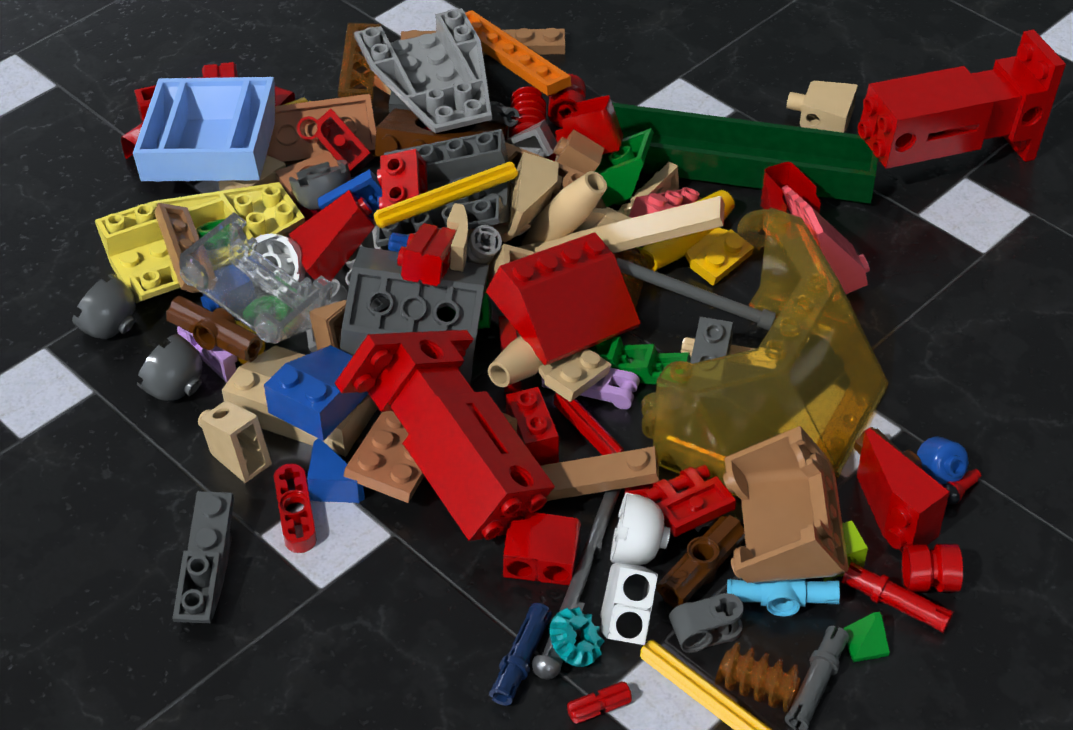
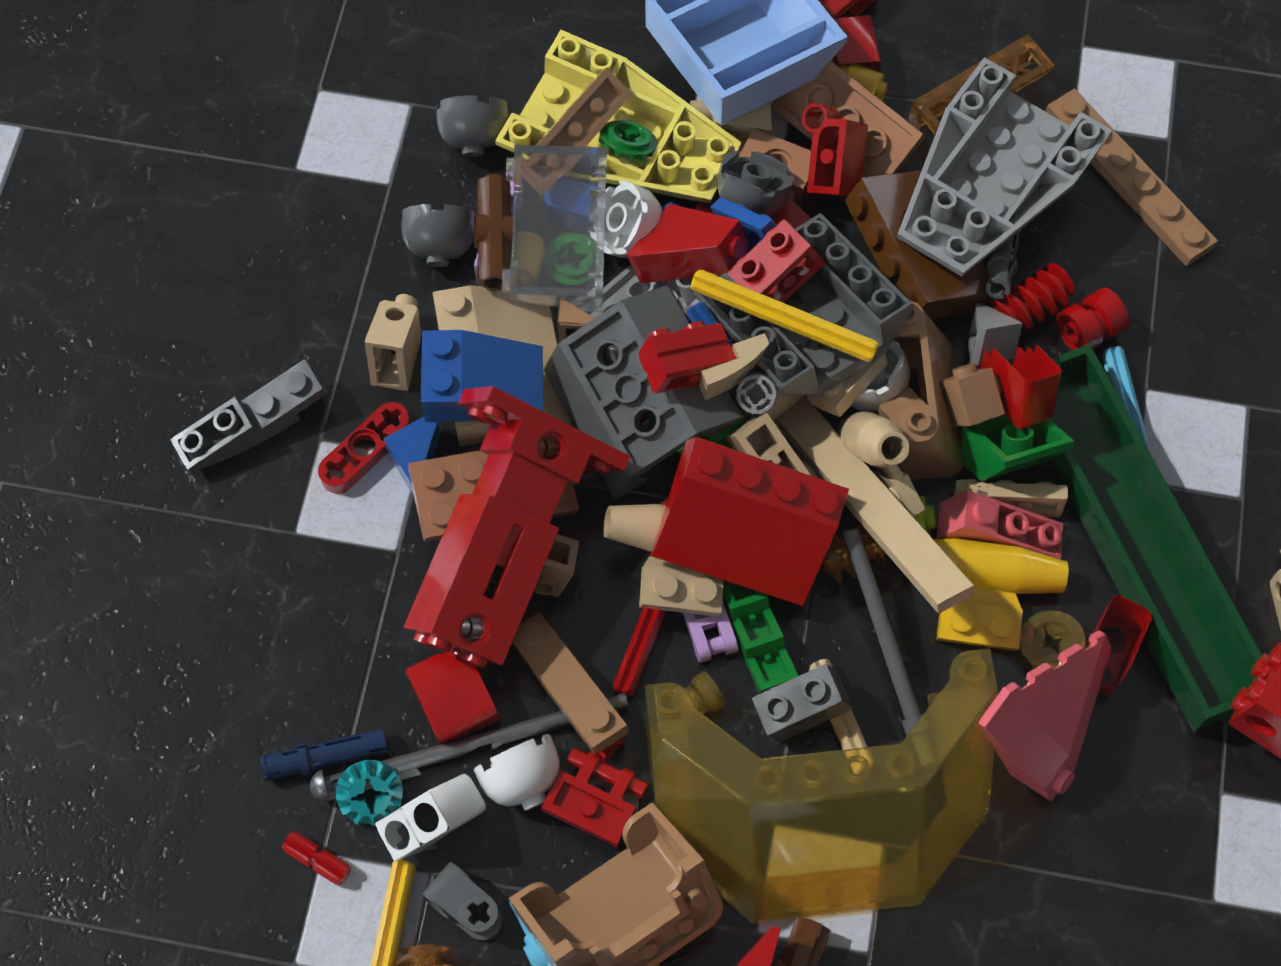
camera: 55 degrees right, 20 degrees up
(518, 57) = (1103, 220): orange plate -> none
(532, 189) = (874, 388): tan slope -> none
(534, 424) = (593, 591): red brick -> none
(701, 561) = (508, 850): reddish brown piece -> none

